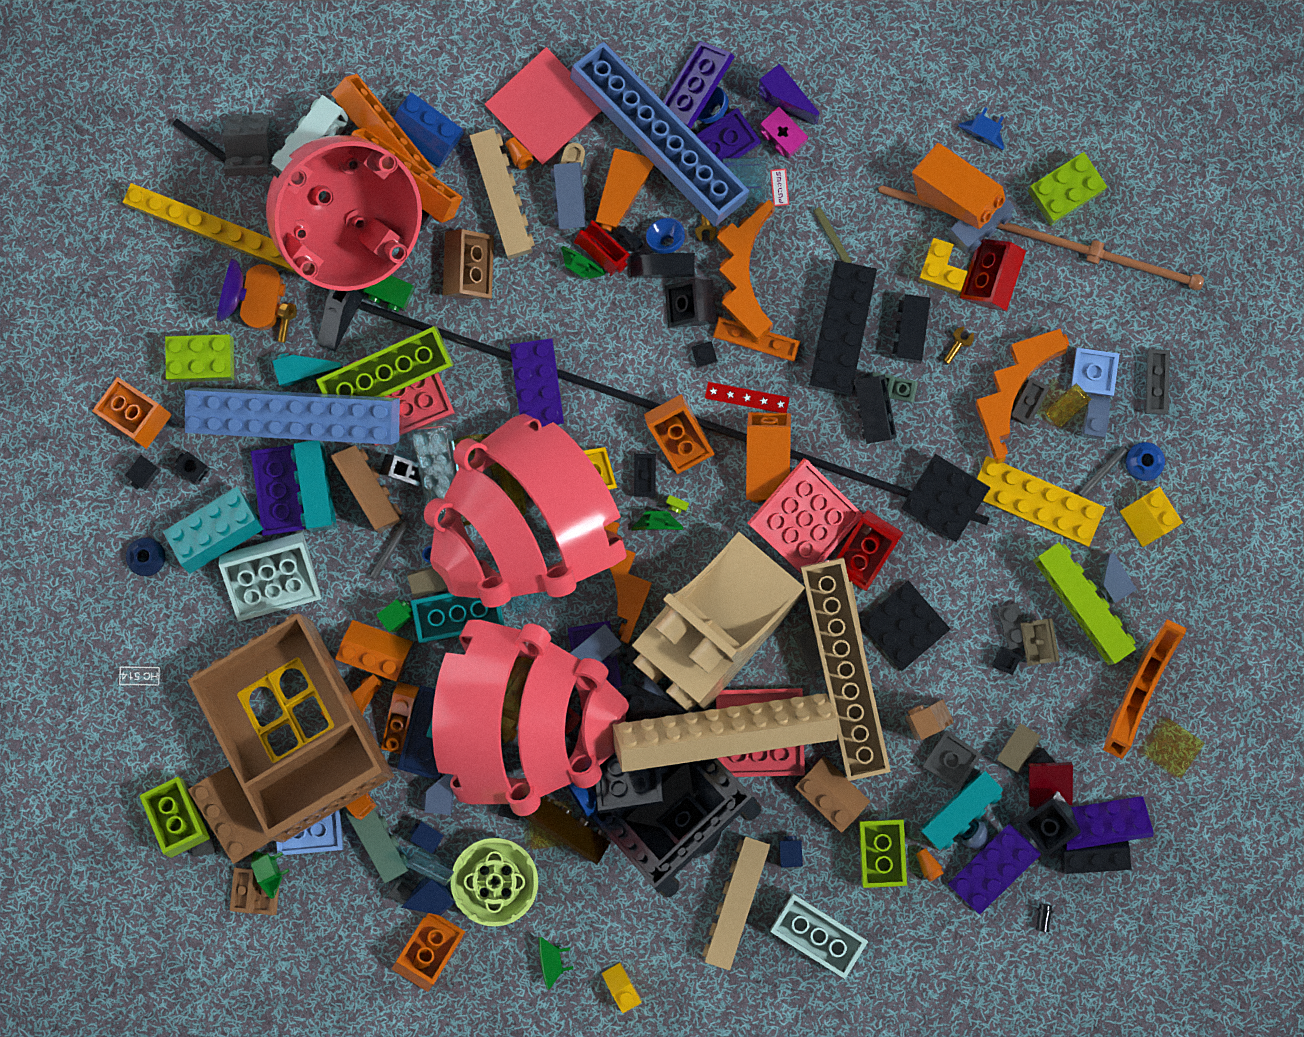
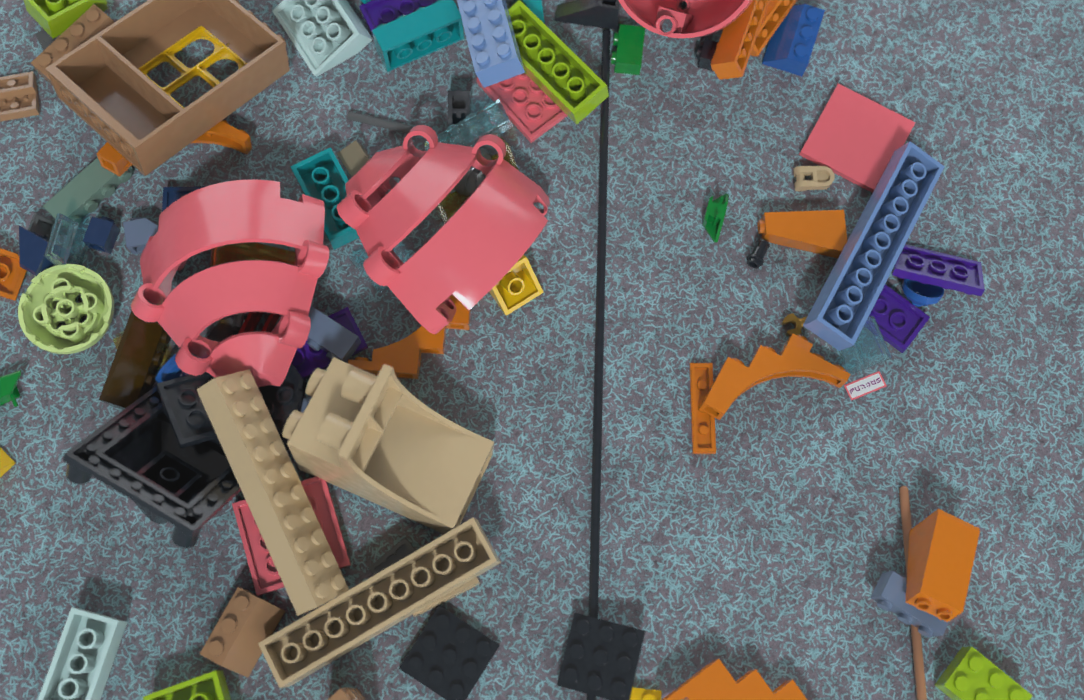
camera: 65 degrees right, 10 degrees down
(267, 872) = (31, 98): green piece -> none
(320, 837) = (78, 136): light blue plate -> none
(367, 489) = (430, 80): medium nougat slope -> none
(374, 650) = (274, 134): orange slope -> none
(396, 615) = (311, 137): green brick -> none
(399, 717) = (216, 172): orange slope -> none
(468, 264) = (679, 112): medium nougat slope -> none
(501, 194) = (757, 122): tan brick -> none
(520, 155) = (802, 128): orange cone -> none
(537, 381) = (586, 207): dark purple plate -> none
(569, 195) = (781, 181): sand blue brick -> none
(602, 248) = (745, 233): red window -> none
(644, 475) = (526, 337): black plate -> none
(657, 521) = (483, 364): green piece -> none
(663, 265) = (744, 293): black slope -> none
(664, 229) = (777, 281): blue piece -> none
(676, 504) = (505, 377): lime plate -> none
(678, 434) = (578, 356): orange slope -> none
(690, 303) = (716, 330): black slope -> none
(704, 354) = (668, 360): black plate -> none
(737, 902) = (101, 564): tan brick -> none
(747, 397) = (639, 418): red sticker -> none
(767, 453) = (584, 453): orange slope -> none
(781, 122) = (932, 363): dark pink brick -> none
(783, 92) = (962, 358): dark purple slope -> none
(790, 852) = (169, 605): dark blue brick -> none
(805, 517) = (532, 510): coral plate -> none
(832, 235) = (835, 453): olive bar -> none
(842, 328) = (744, 491): black brick -> none
(868, 549) = (520, 590): red slope -> none
(874, 409) = (671, 550): black brick -> none
(900, 388) = (701, 565): sand green slope -> none
(911, 328) = (770, 564): black brick -> none
(937, 272) = (841, 573): yellow brick -> none
(959, 343) = (769, 621): pearl gold bar -> none
(985, 129) = (1009, 579): blue piece -> none
(993, 274) = (860, 636): red slope -> none

